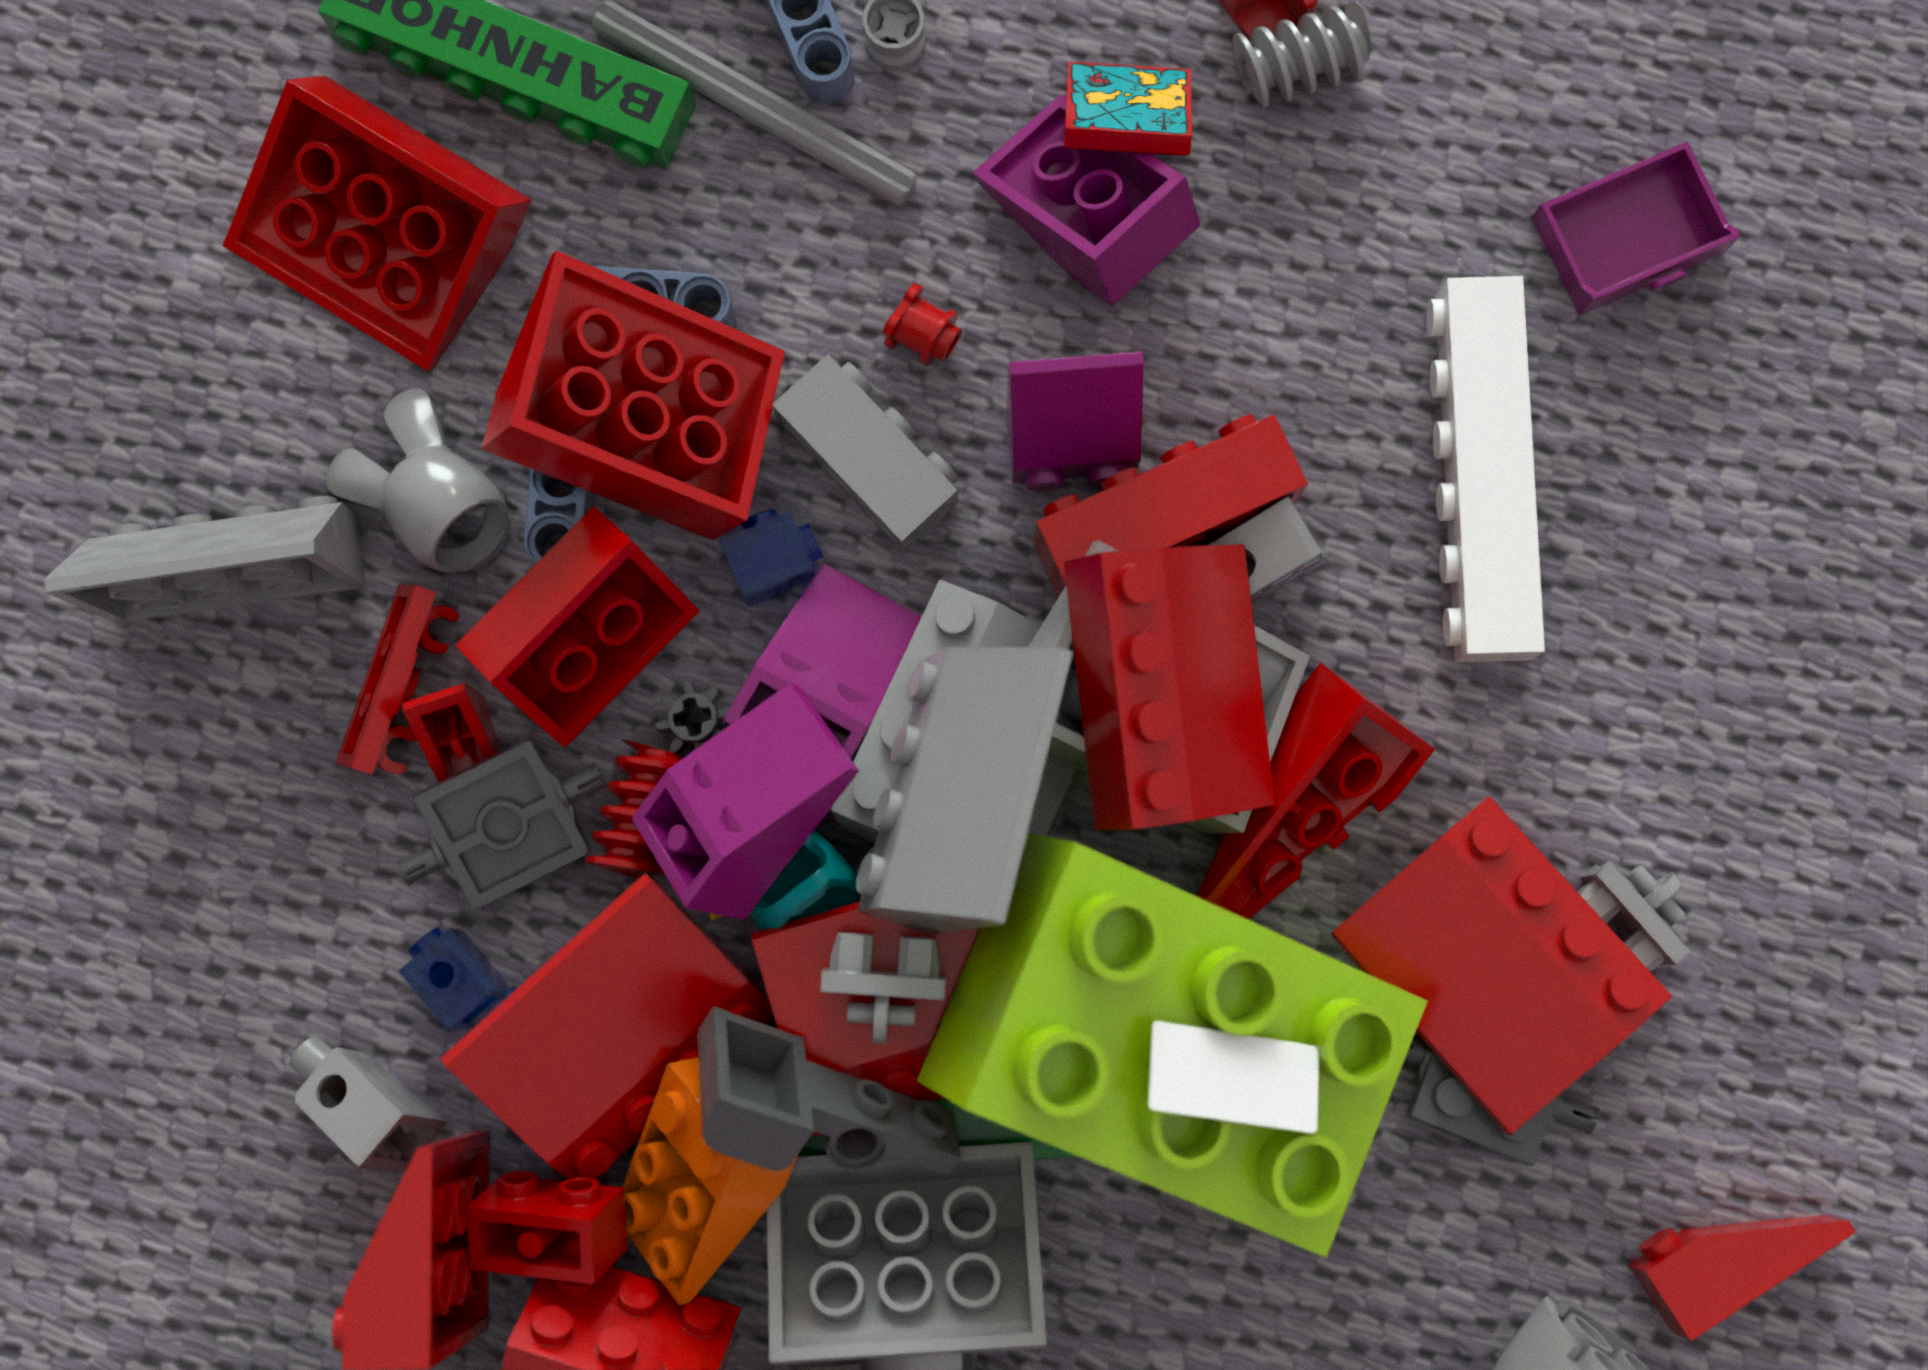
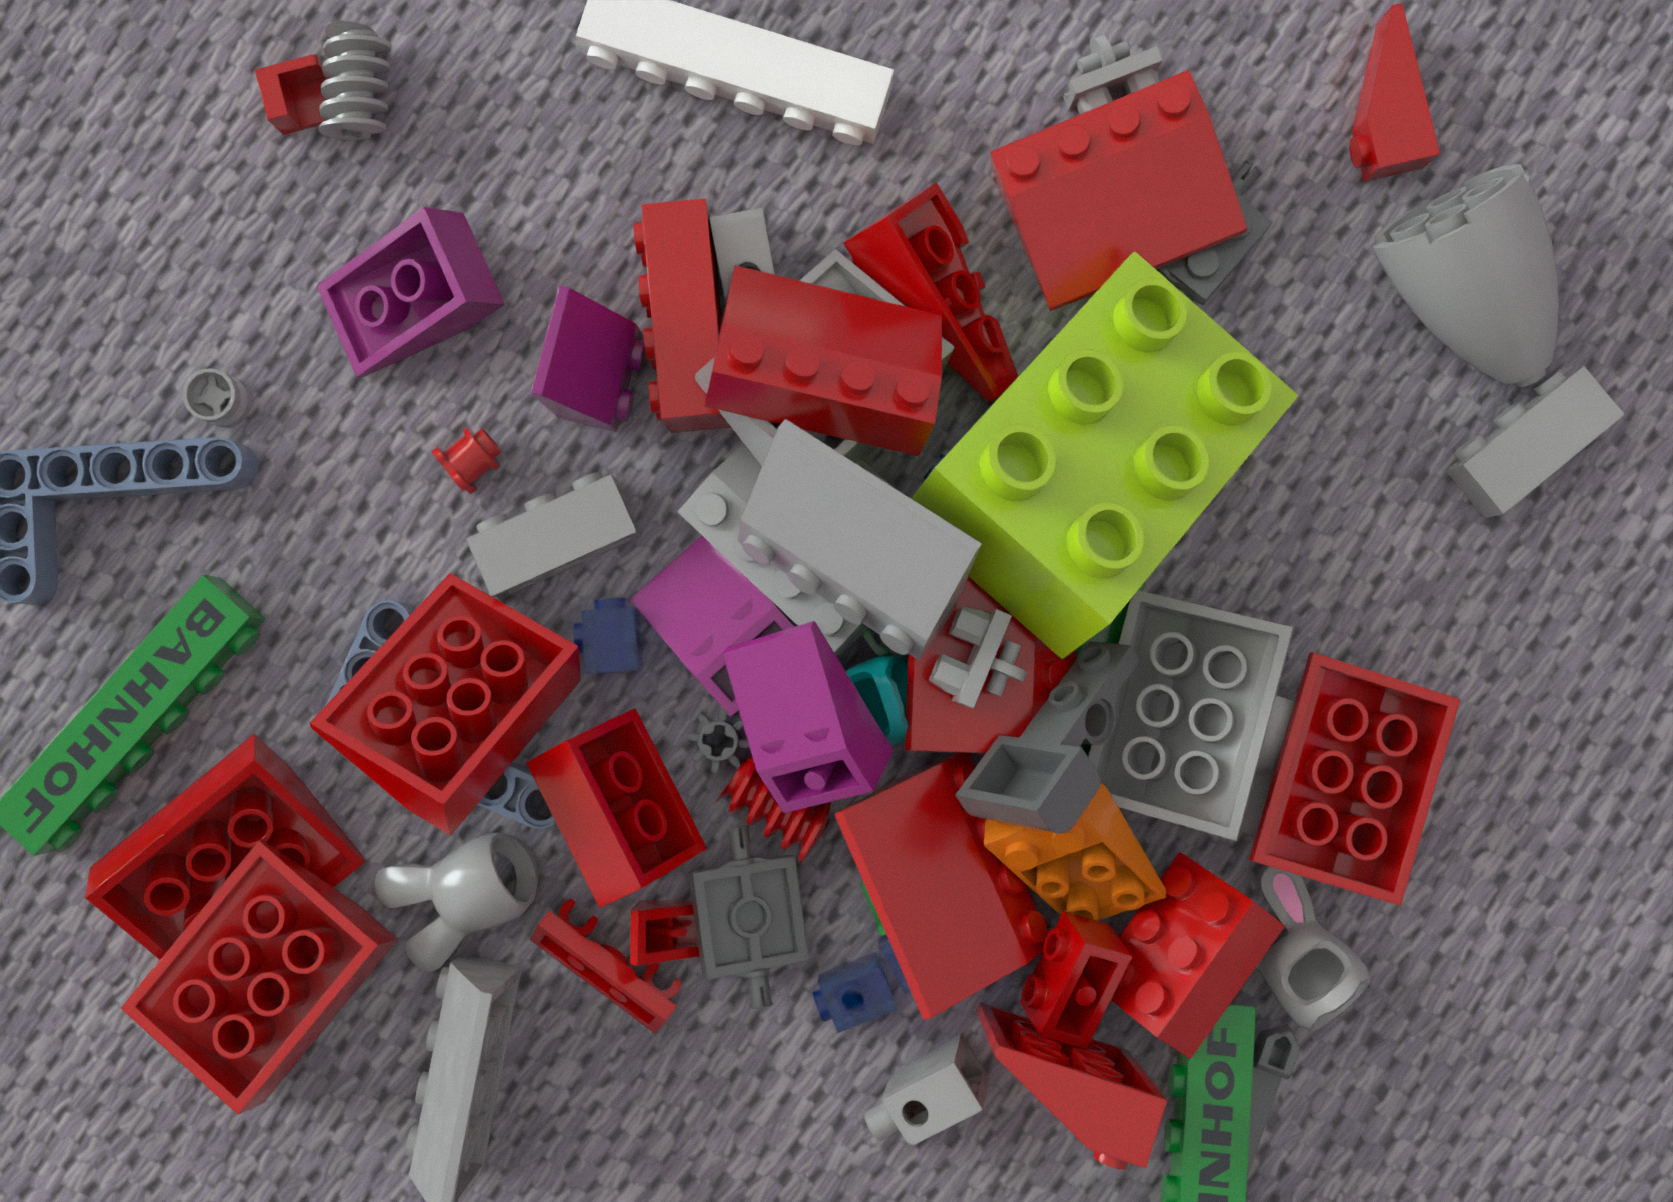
camera: 75 degrees left, 5 degrees up
(260, 298) = (258, 976): none -> red slope
(754, 102) = (235, 530): light grey axle -> none
(1128, 109) = (349, 234): tile -> none
(1233, 1077) = (1150, 412): white sticker -> none

